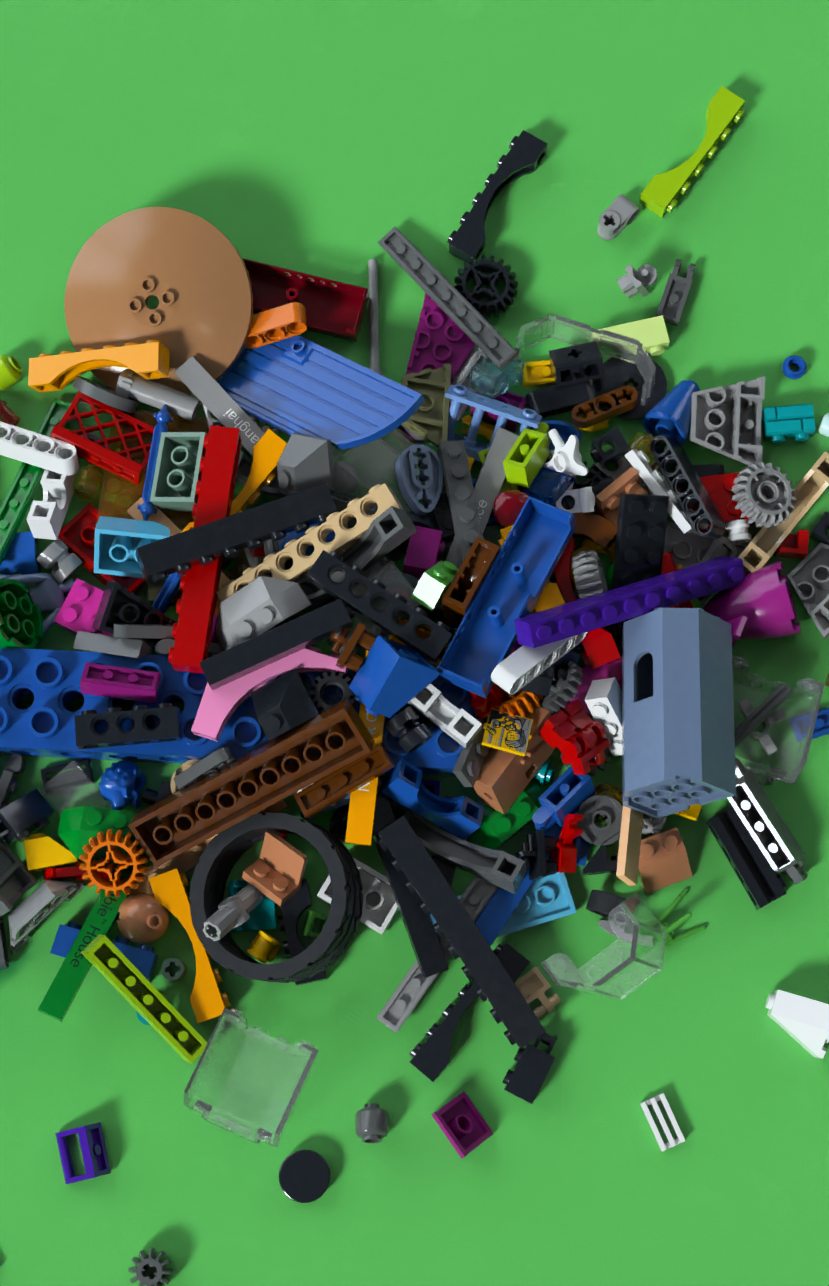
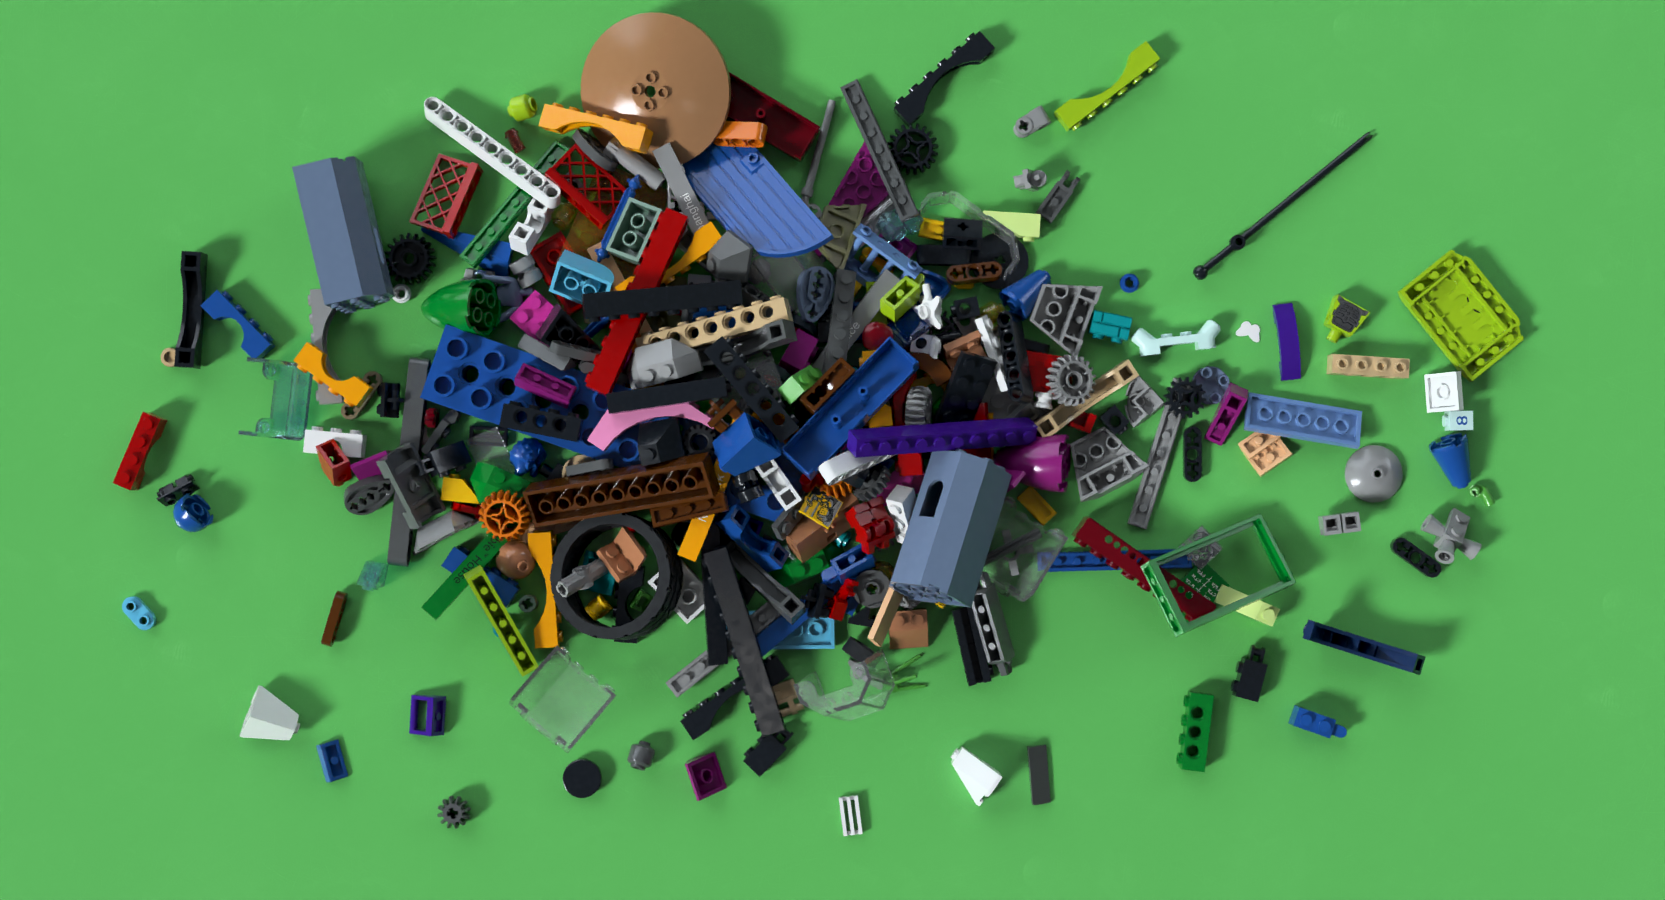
camera: 10 degrees right, 10 degrees up
(770, 662) = (1036, 505): none -> yellow tile

